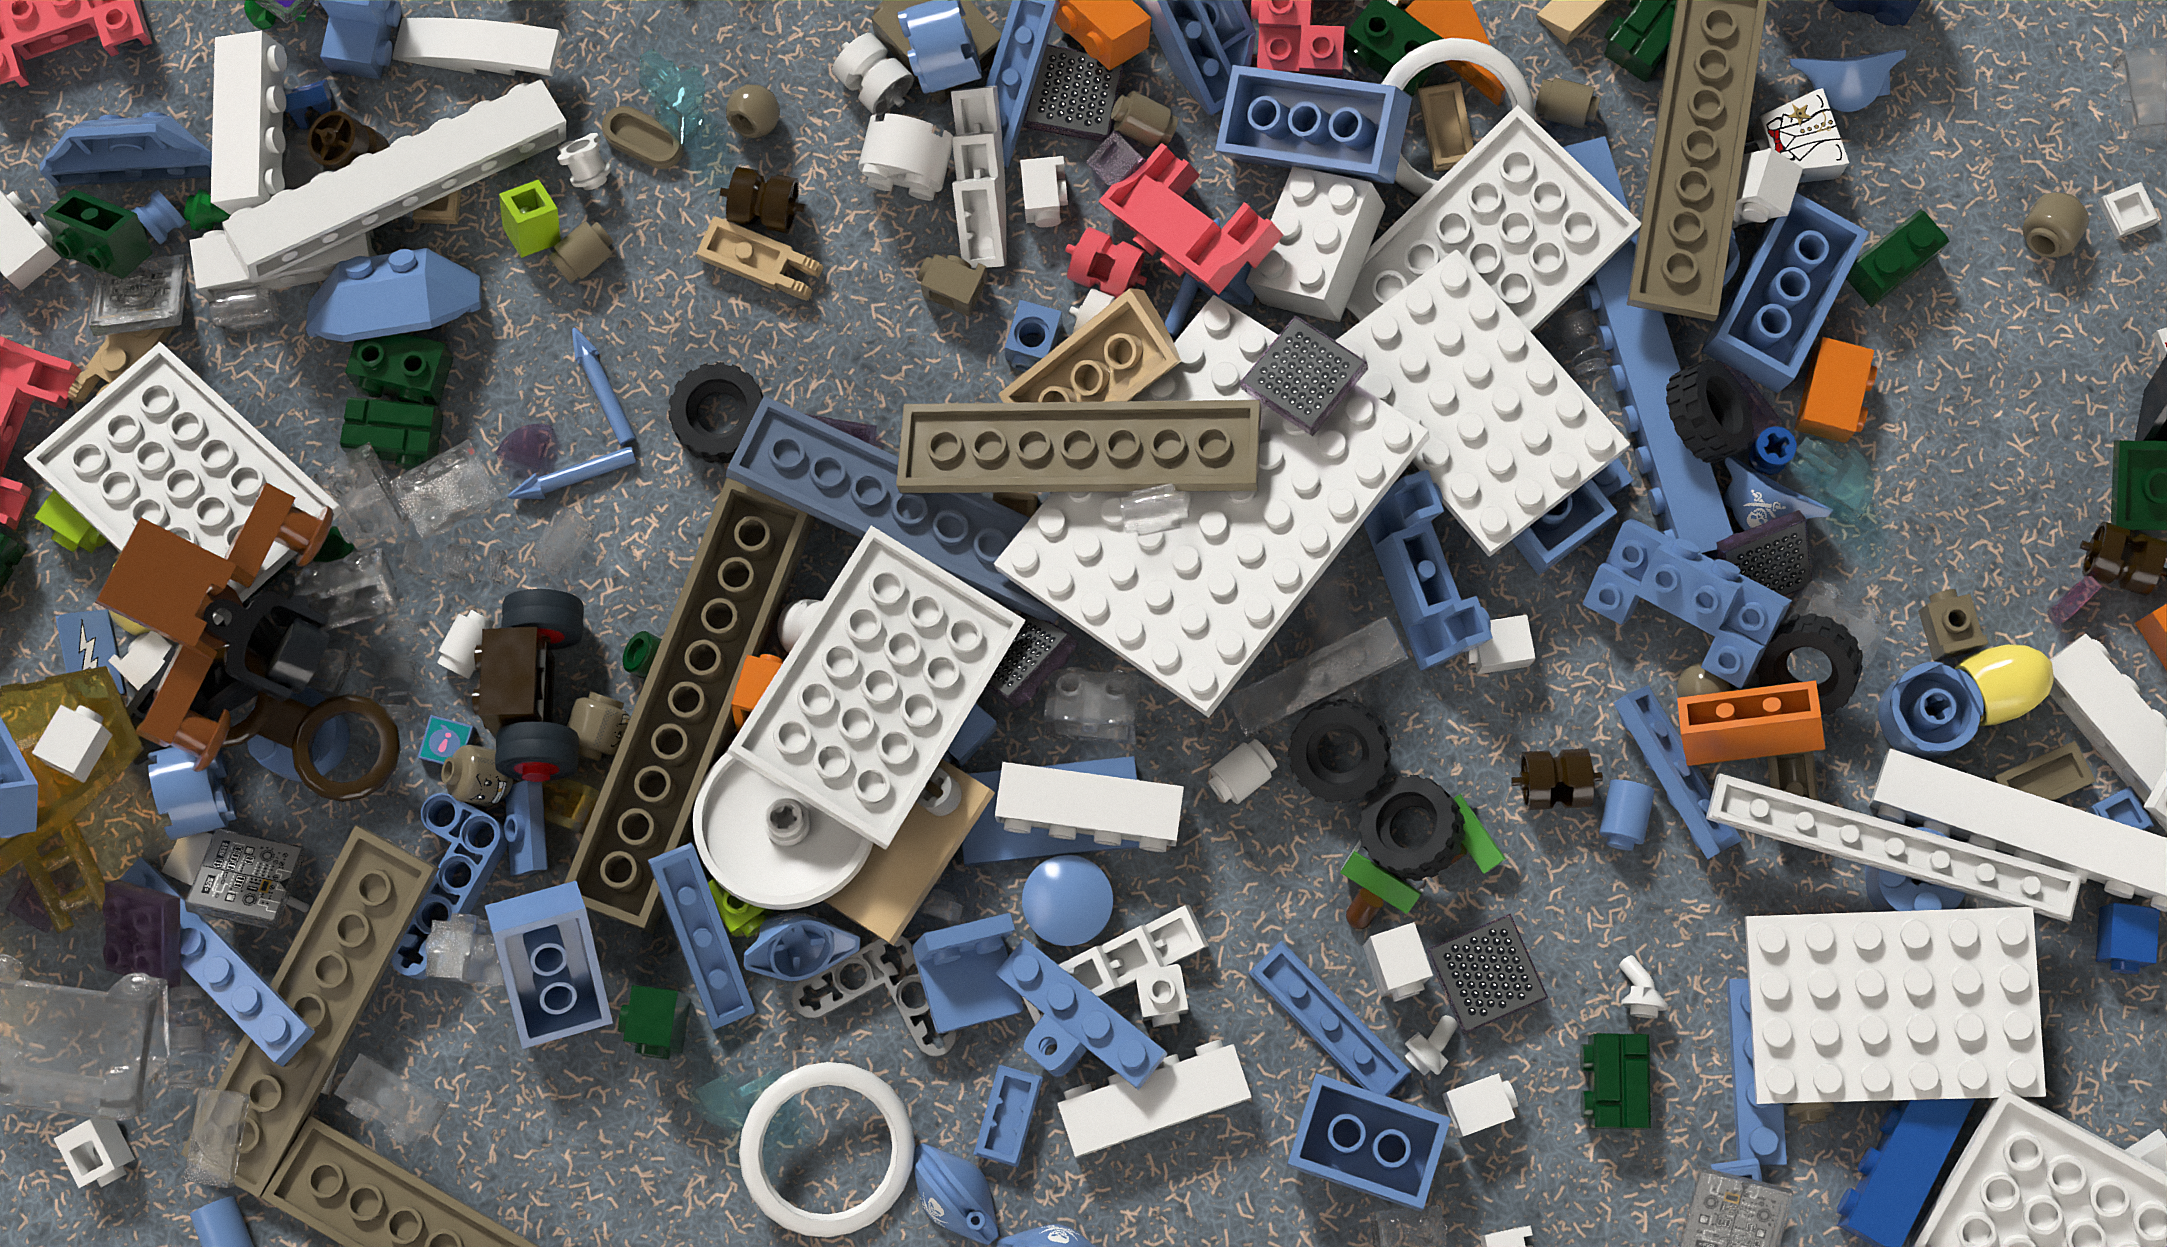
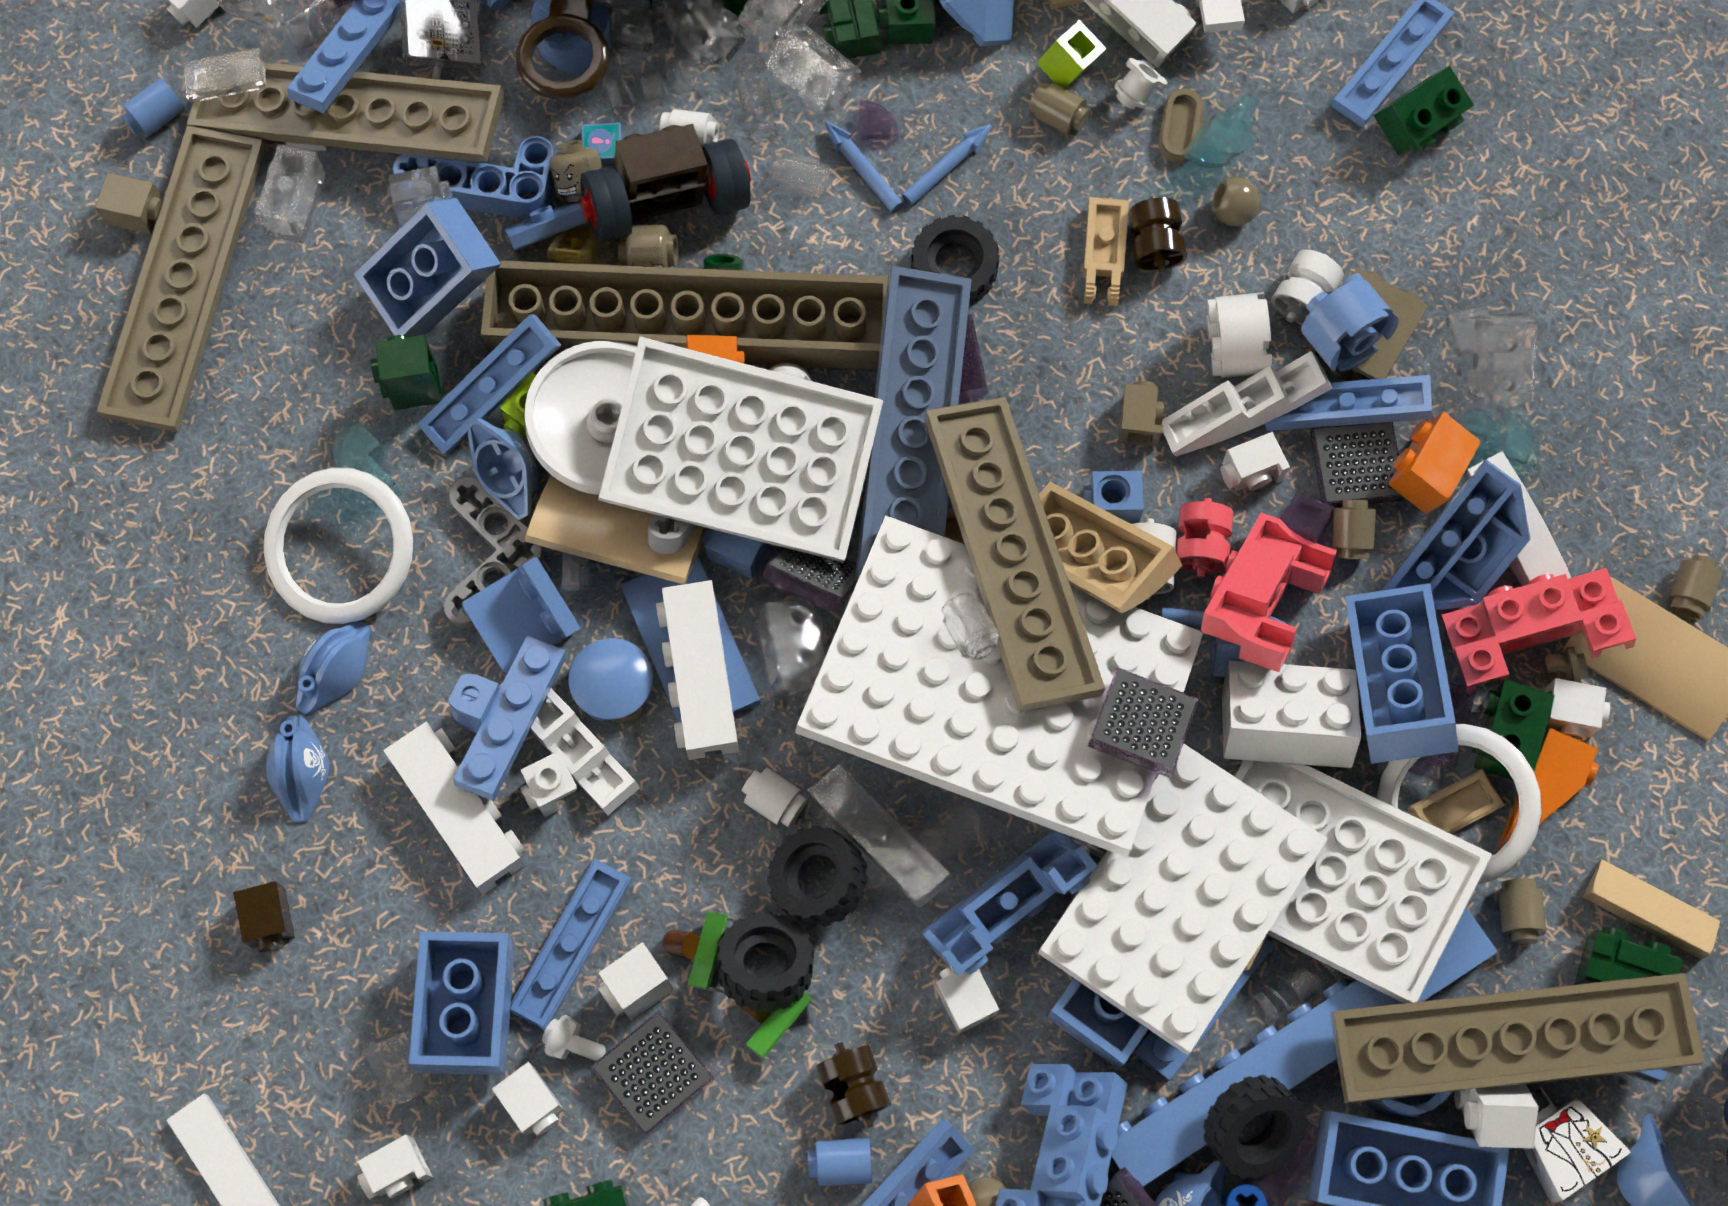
camera: 70 degrees right, 5 degrees down
(1008, 1116) = (409, 688): medium blue plate -> none

